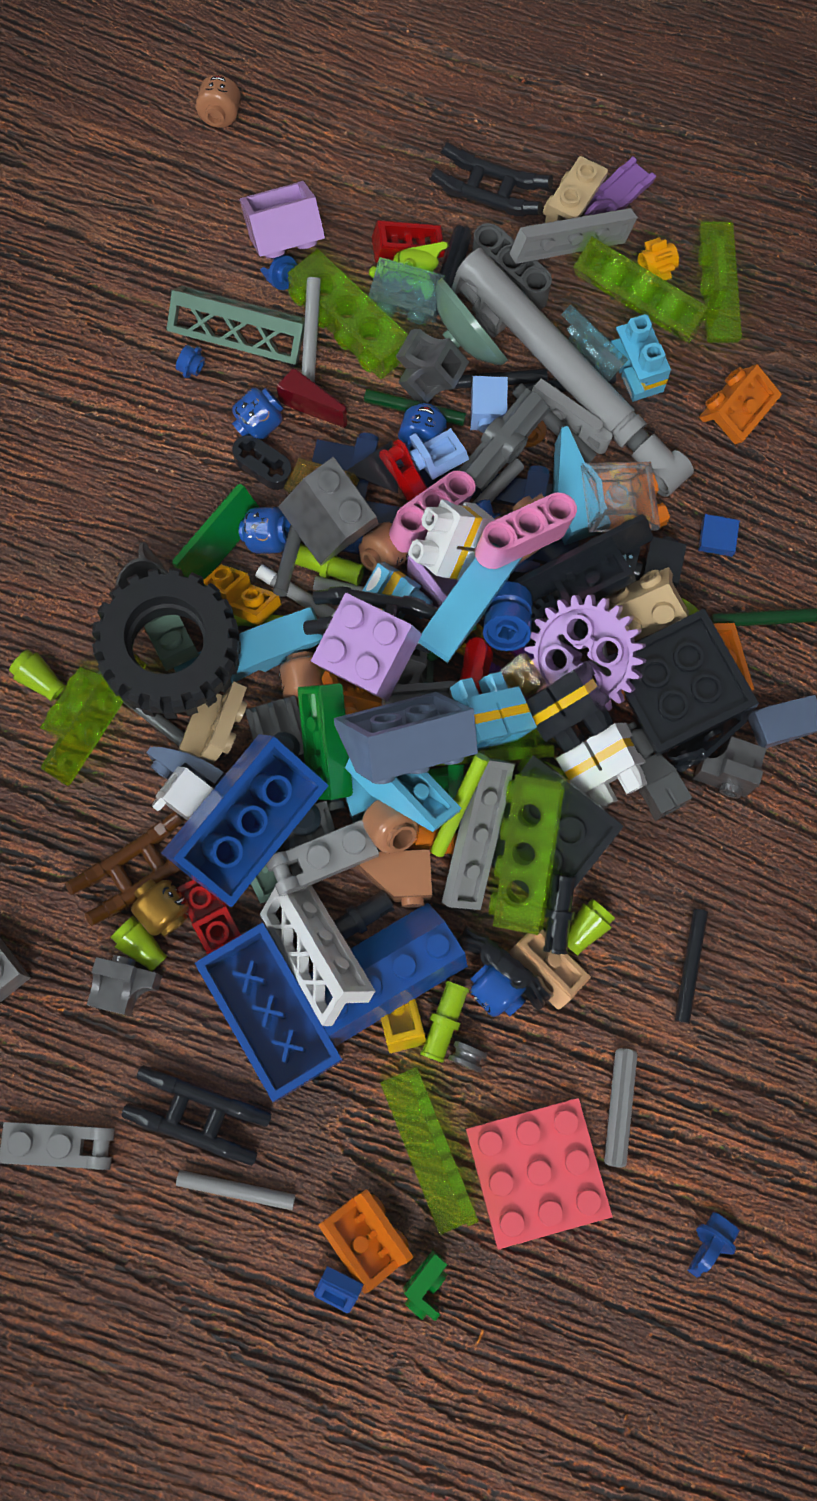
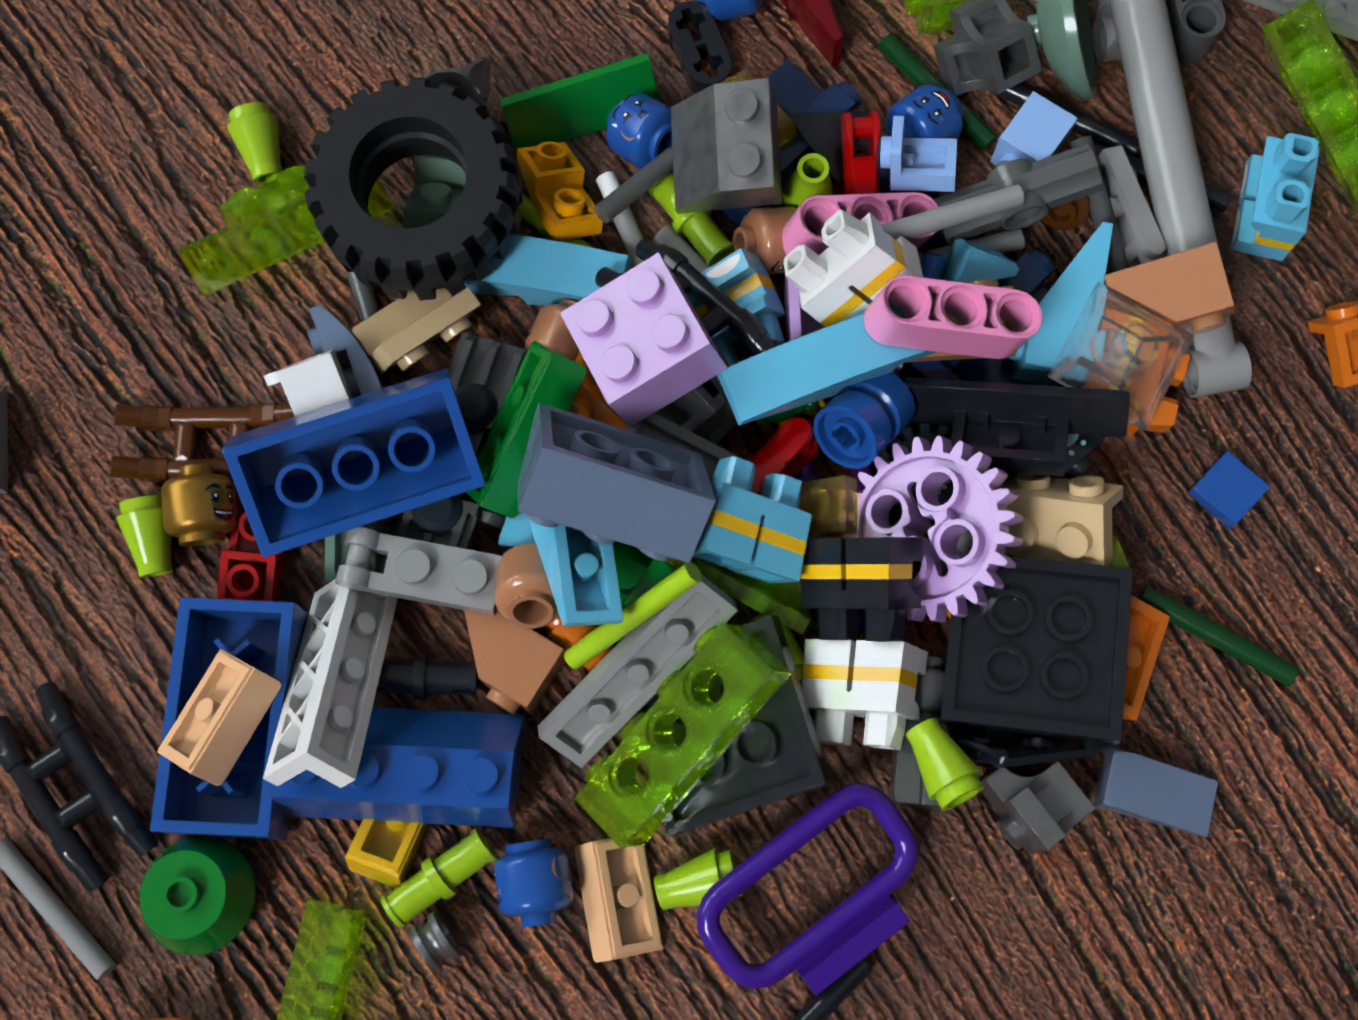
camera: 40 degrees right, 0 degrees up
(120, 984) = (89, 567): flat silver brick -> none
(267, 1012) = (219, 718): none -> light nougat slope
(316, 1124) = (197, 895): none -> green cone
(385, 503) = (808, 180): none -> lime cone
(483, 470) = (956, 213): none -> light grey piece
(507, 493) = (974, 262): none -> medium azure slope
(508, 966) = (557, 861): black piece -> none
(559, 914) = (670, 840): black pin -> none
(593, 344) = (1222, 141): clear light blue bracket -> none
(628, 440) = (1181, 288): none -> nougat slope
(664, 553) = (1136, 468): black brick -> none
(676, 776) = (943, 765): none -> lime cone
(682, 901) = (842, 934): none -> dark purple bar

